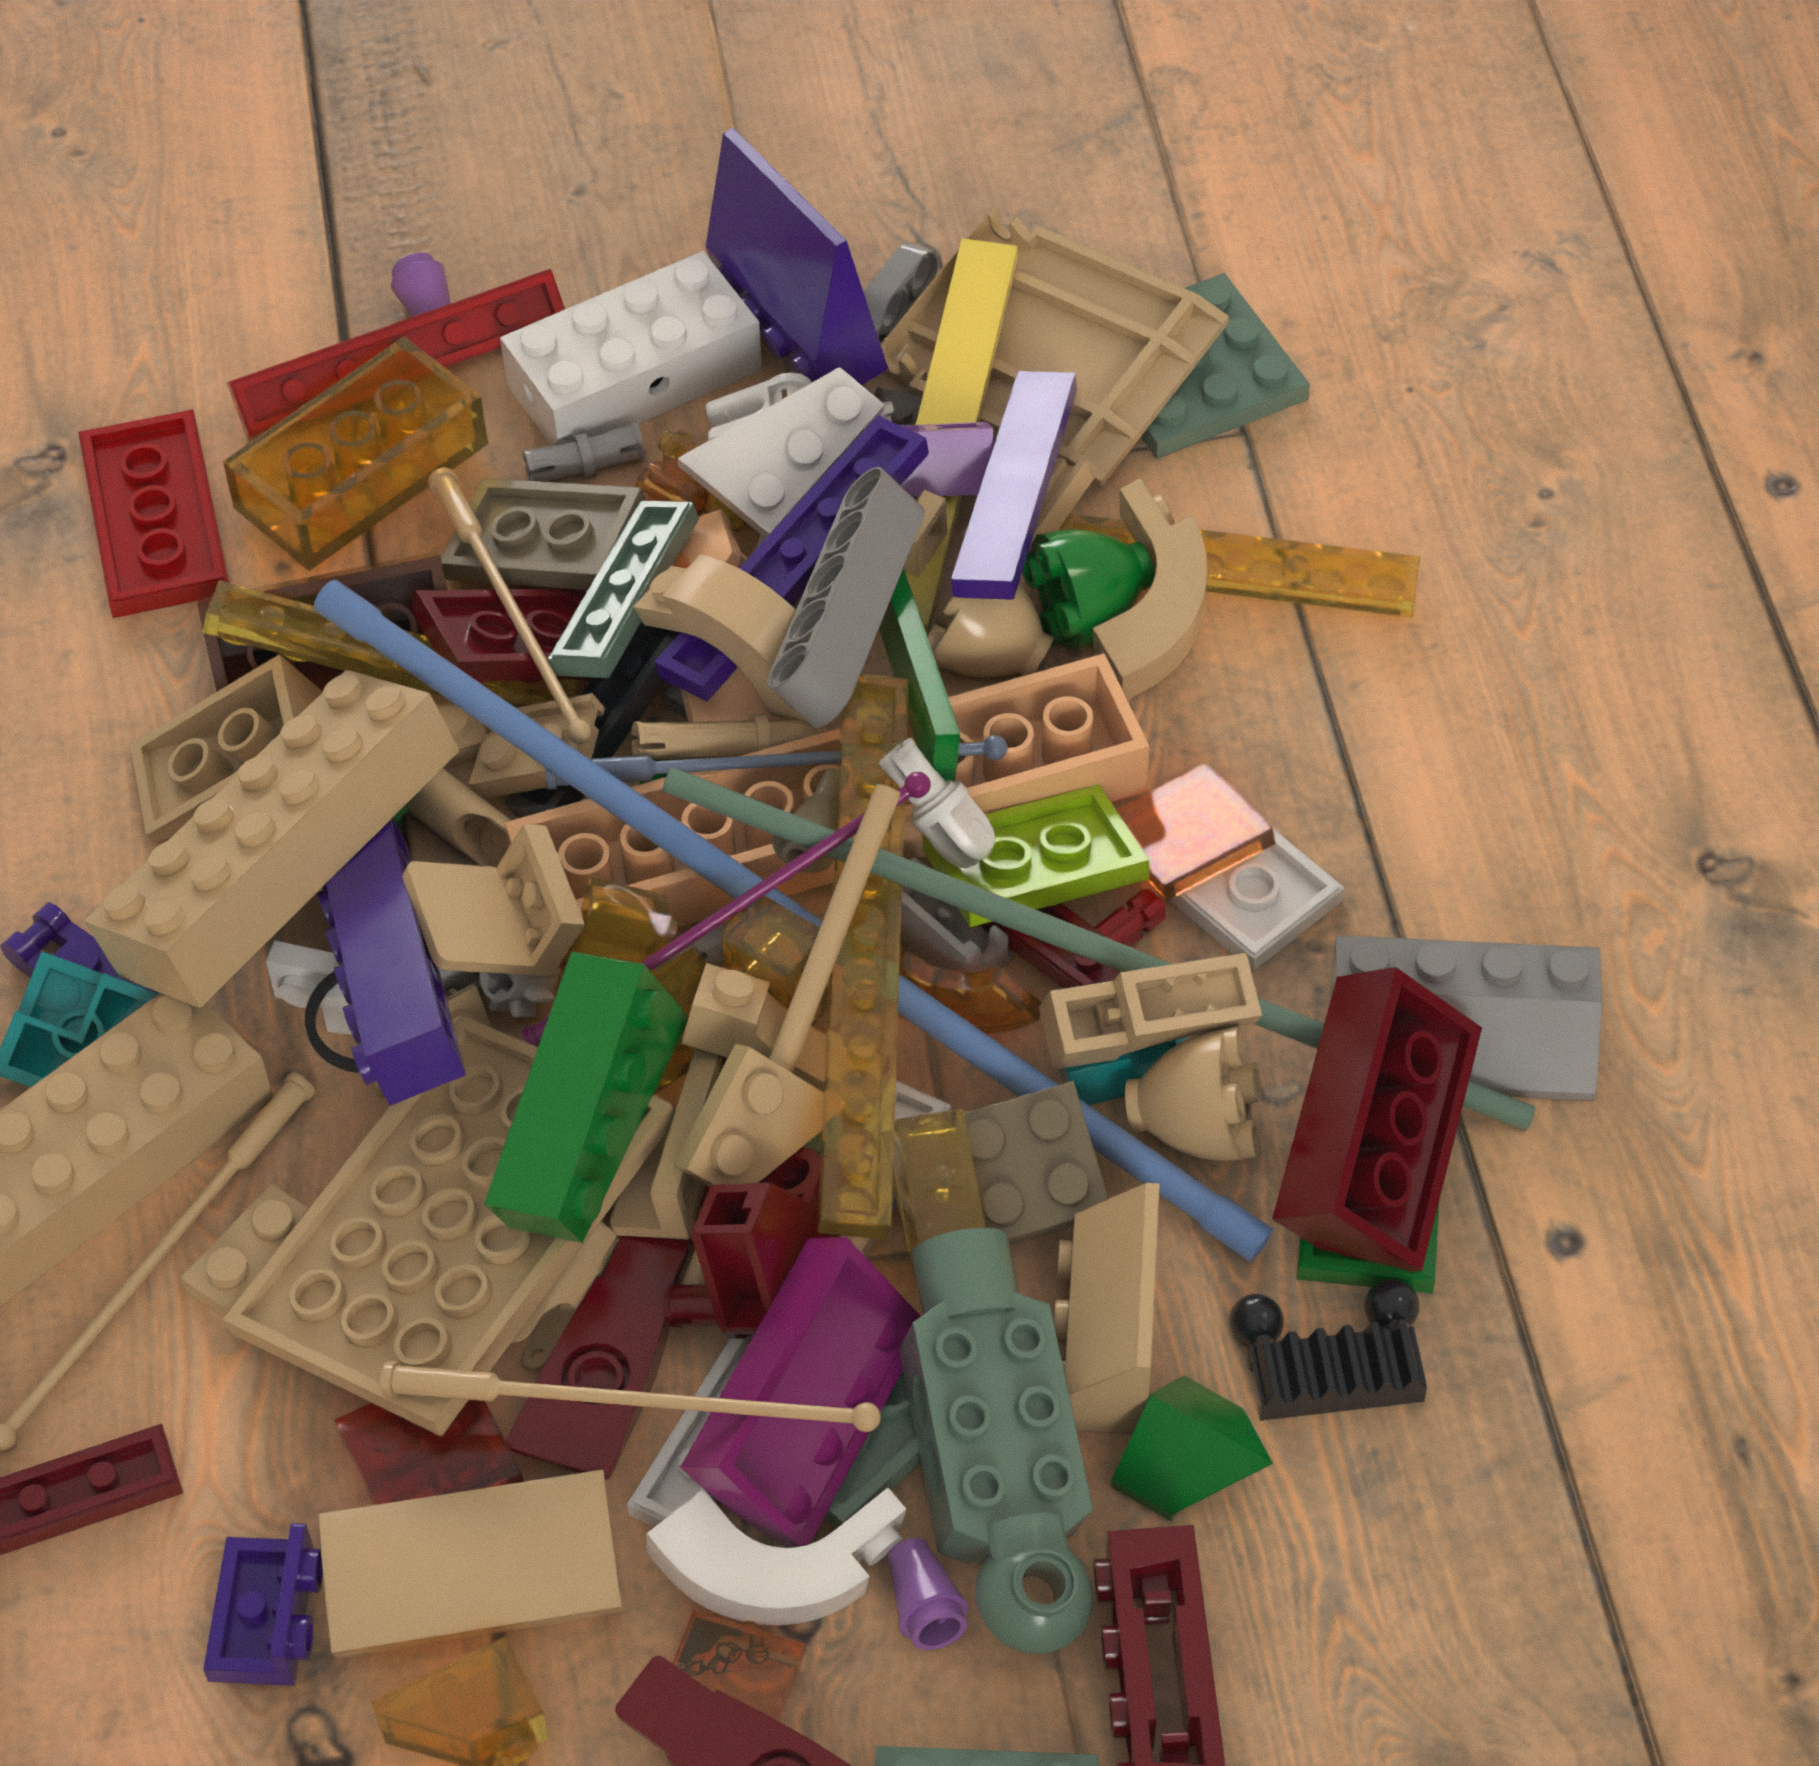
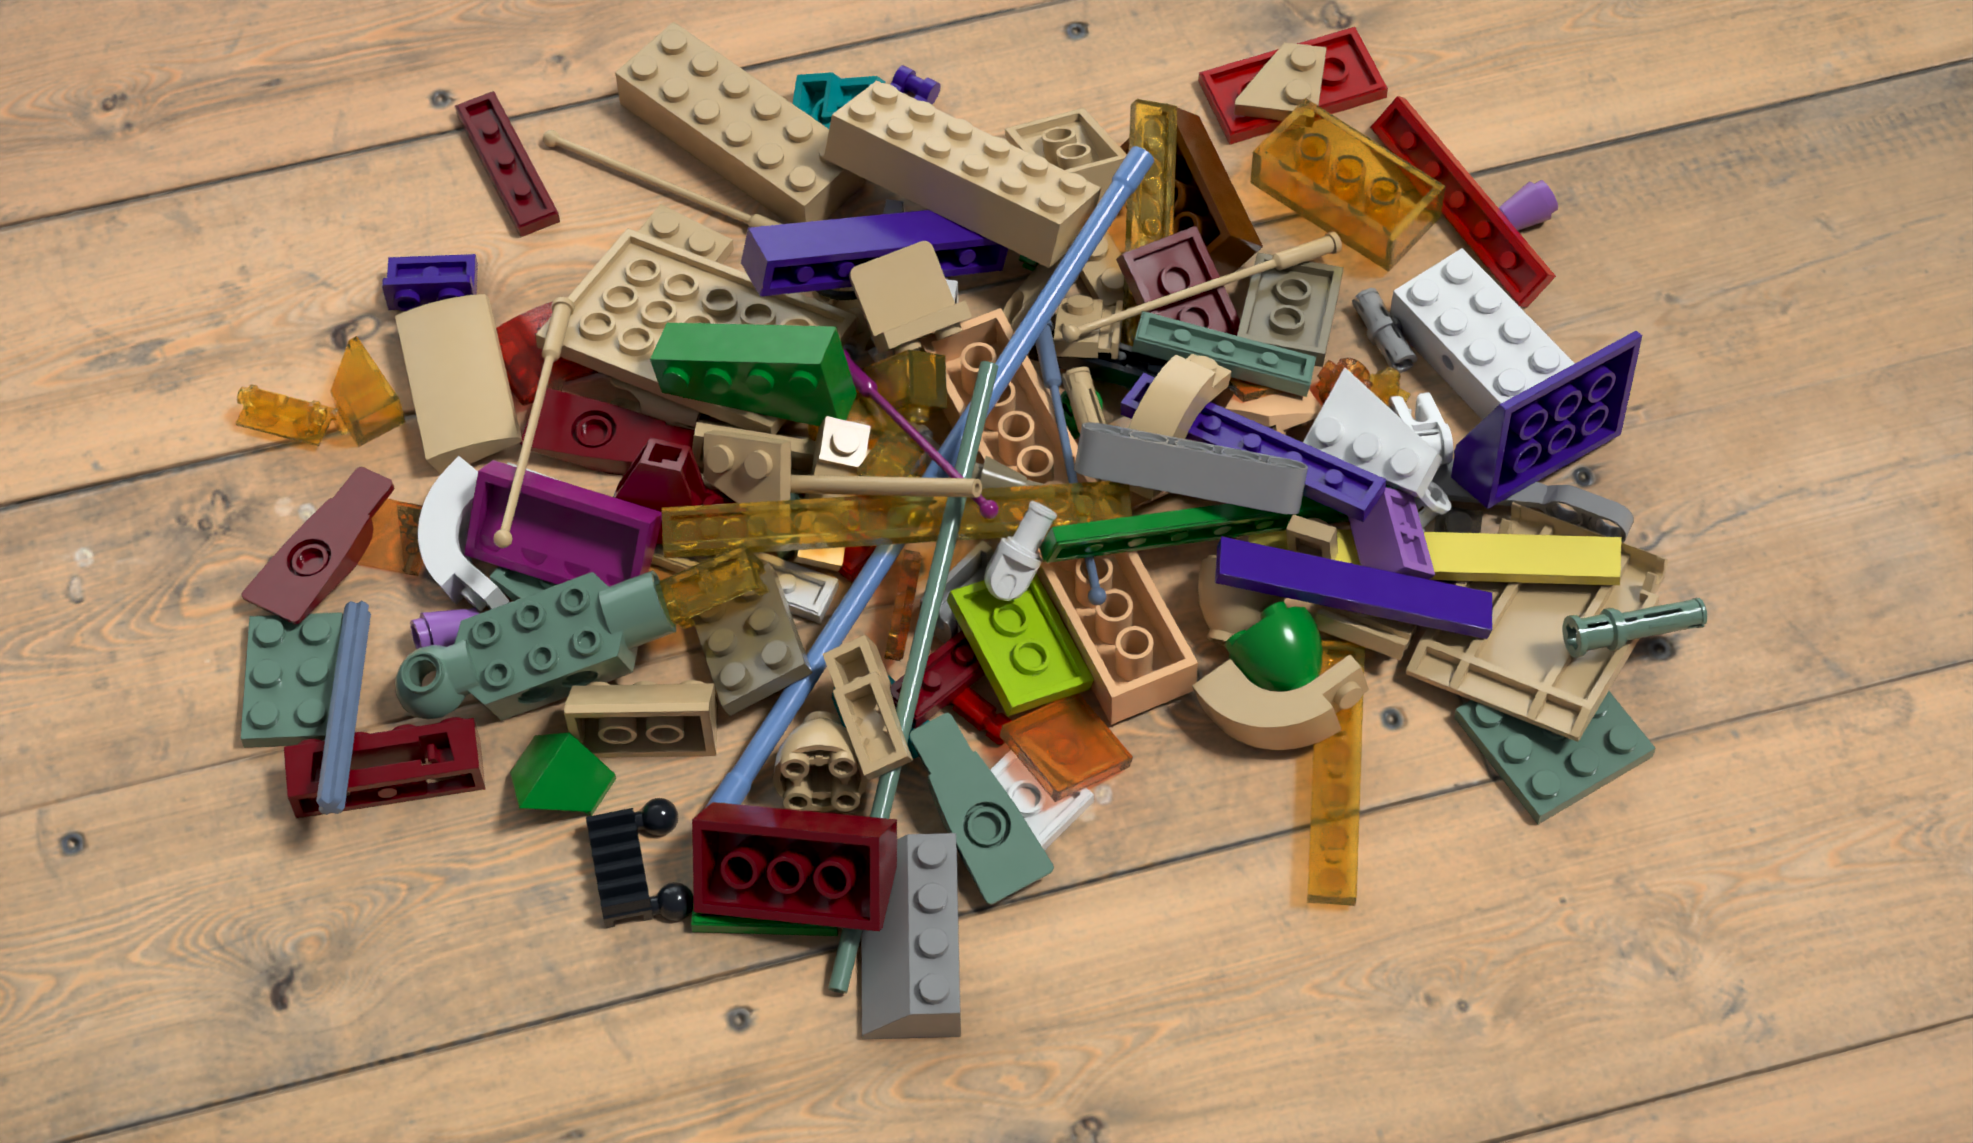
camera: 85 degrees right, 5 degrees up
(168, 502) = (1284, 83): none -> tan wing
(1078, 1712) = (343, 708): none -> sand blue axle
(1094, 253) = (1615, 628): none -> sand green pin
(1291, 922) = (974, 805): none -> sand green piece

